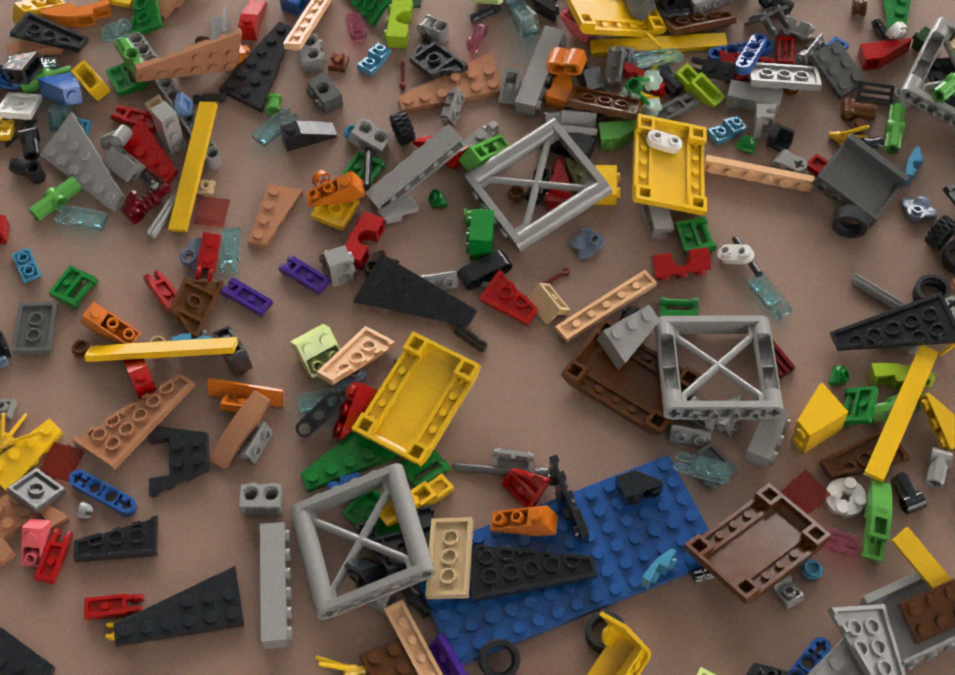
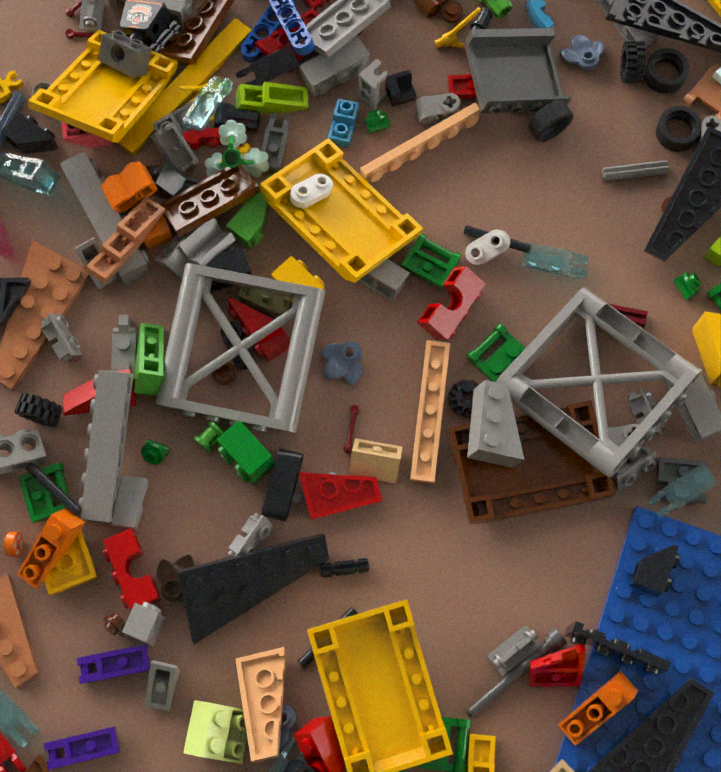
camera: 50 degrees left, 15 degrees up
(317, 300) = (161, 685): none -> light grey slope
(542, 84) = (125, 240): none -> nougat slope

